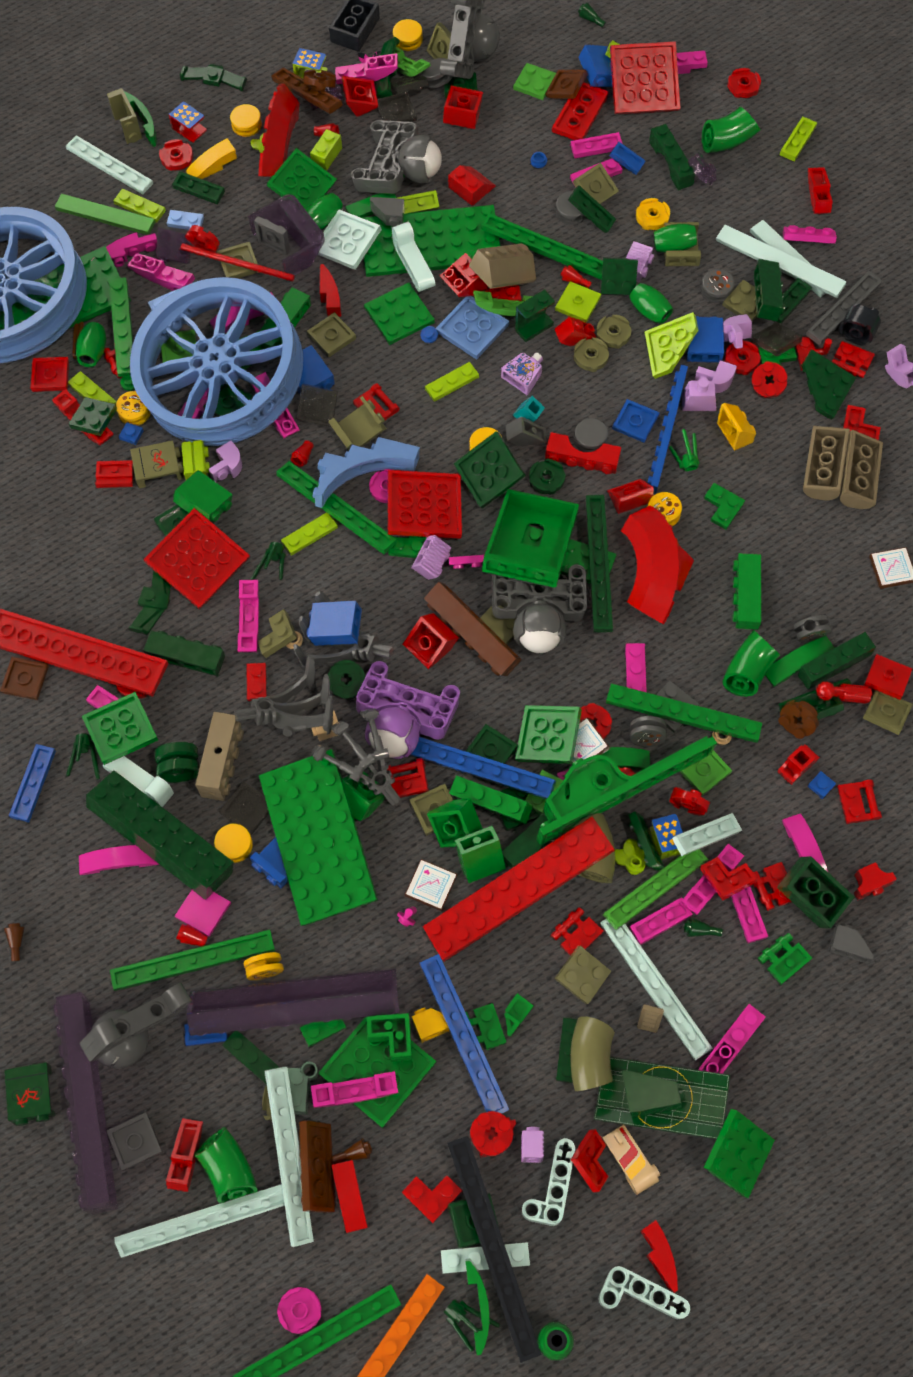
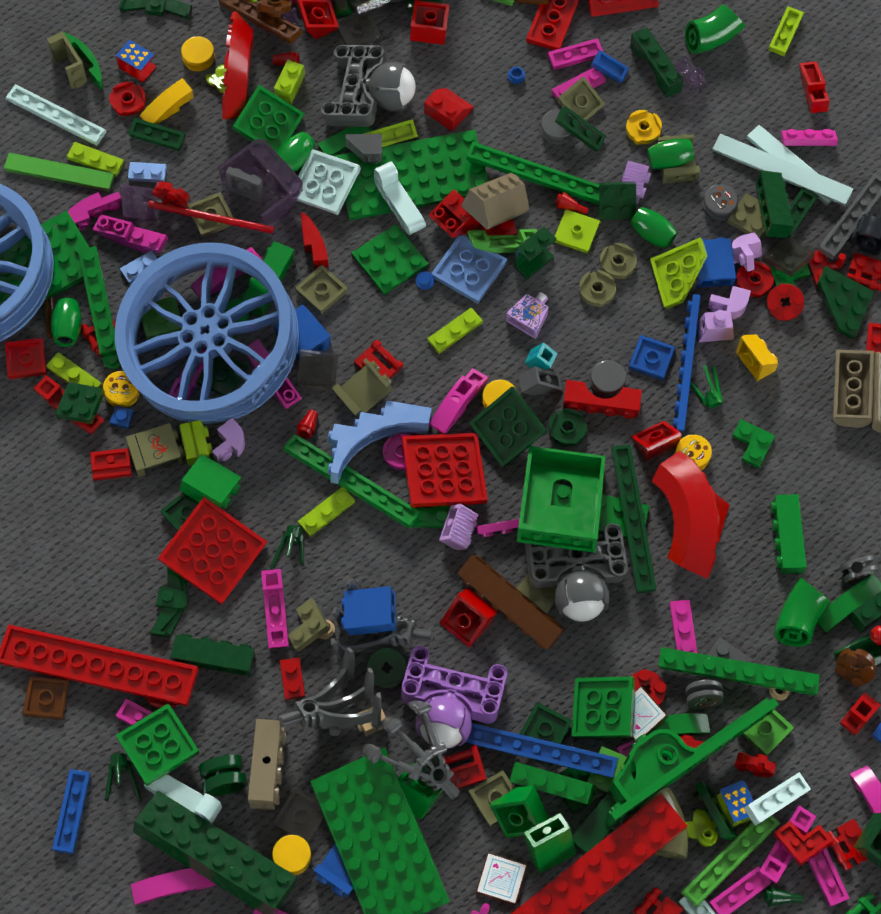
camera: 10 degrees left, 0 degrees up
(444, 442) = (457, 400): none -> dark pink slope
(573, 331) = (576, 265): red slope -> none

